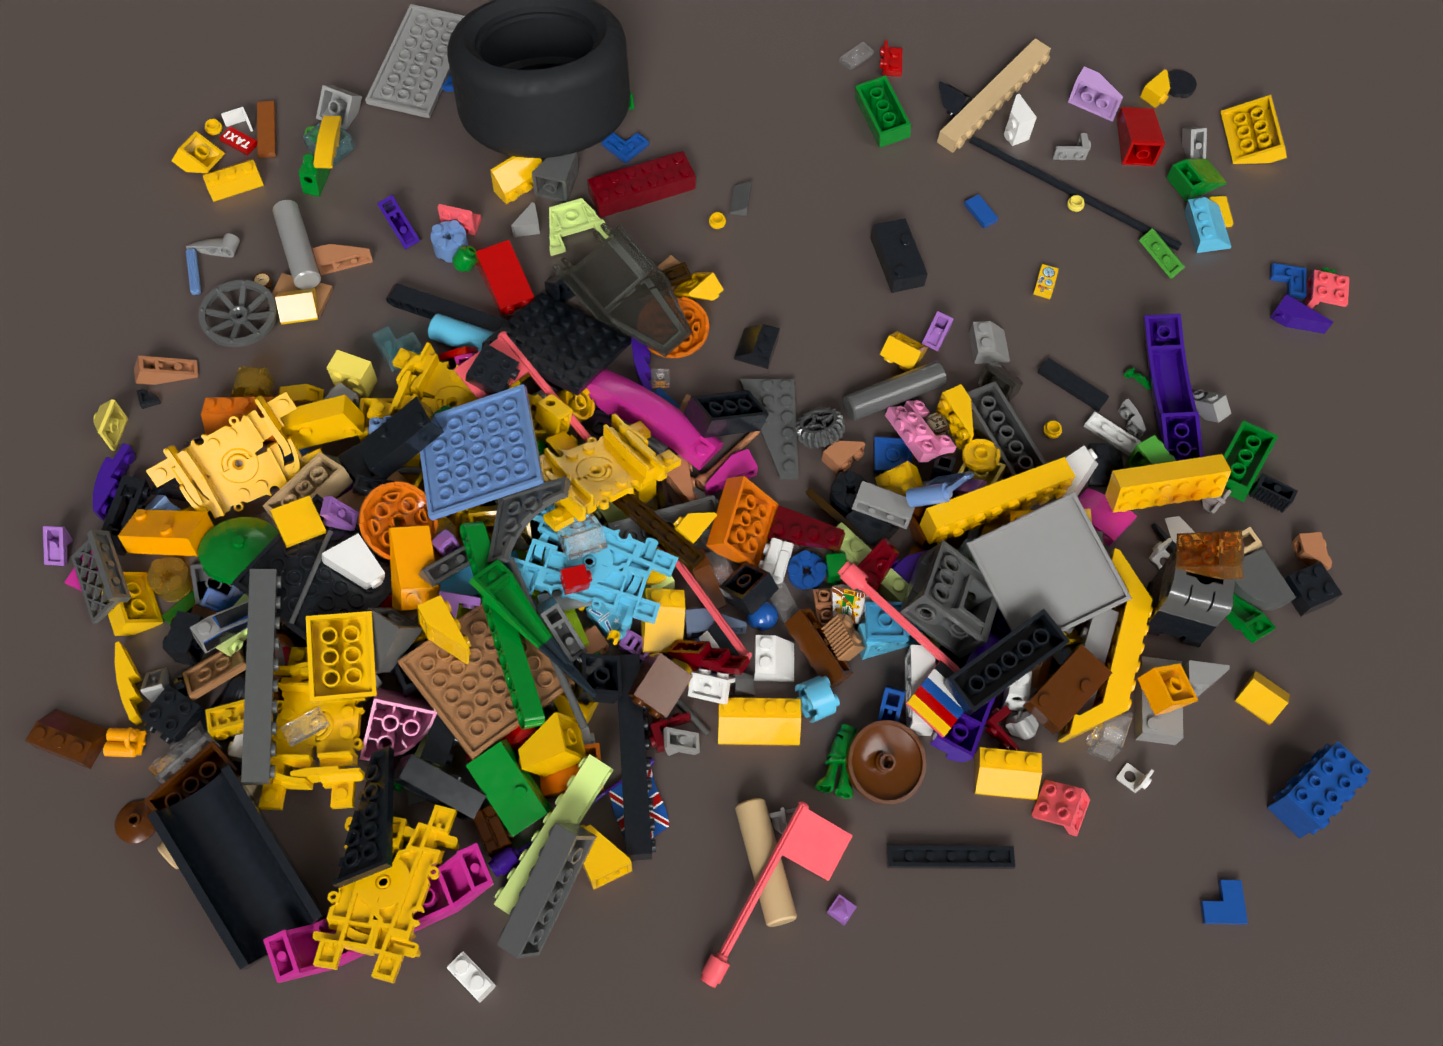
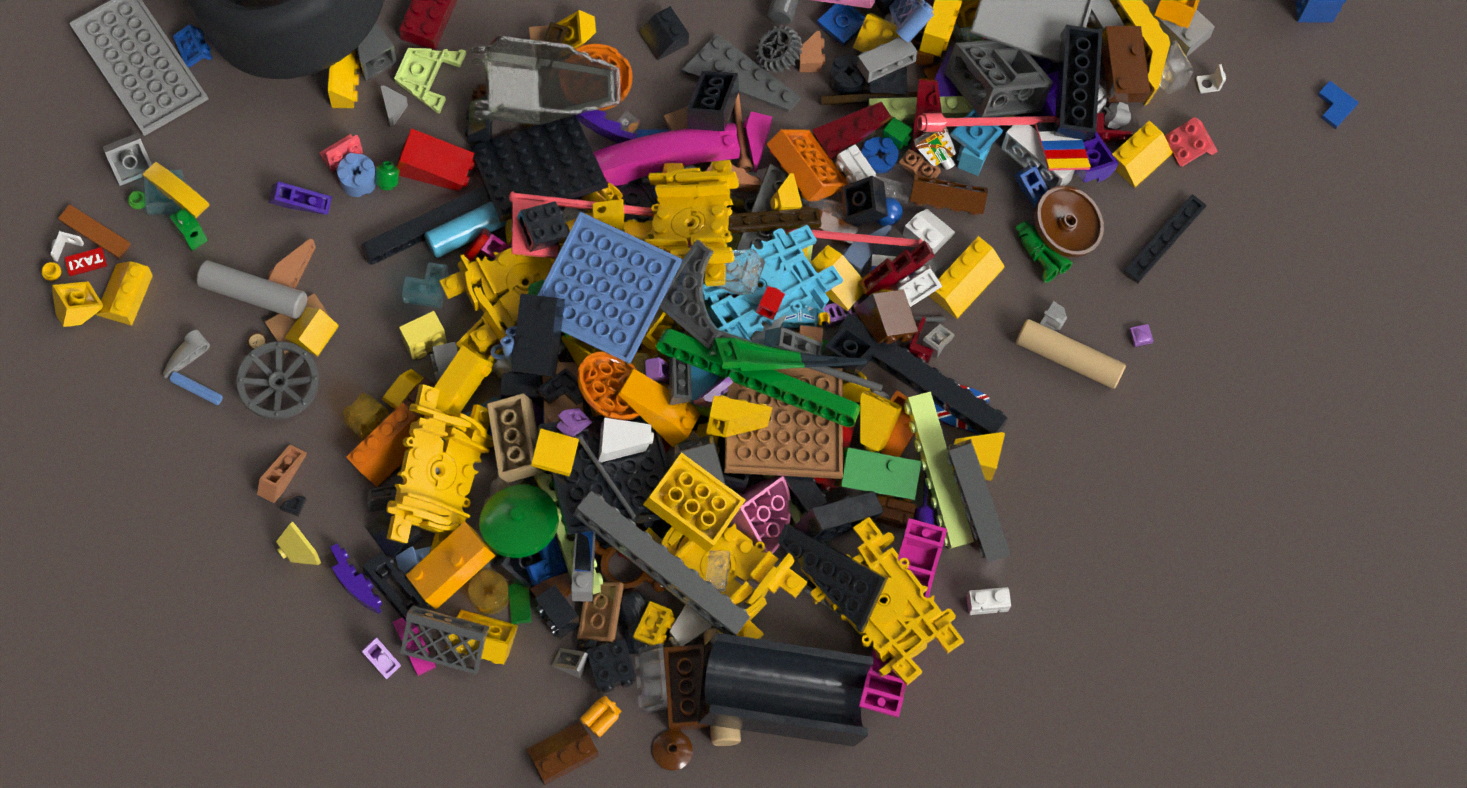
camera: 50 degrees left, 5 degrees up
(127, 677) = (545, 678): yellow slope -> none
(806, 841) = (1088, 315): coral flag -> none
(817, 698) = (986, 224): medium azure brick -> none
(843, 637) = (958, 171): medium nougat brick -> none

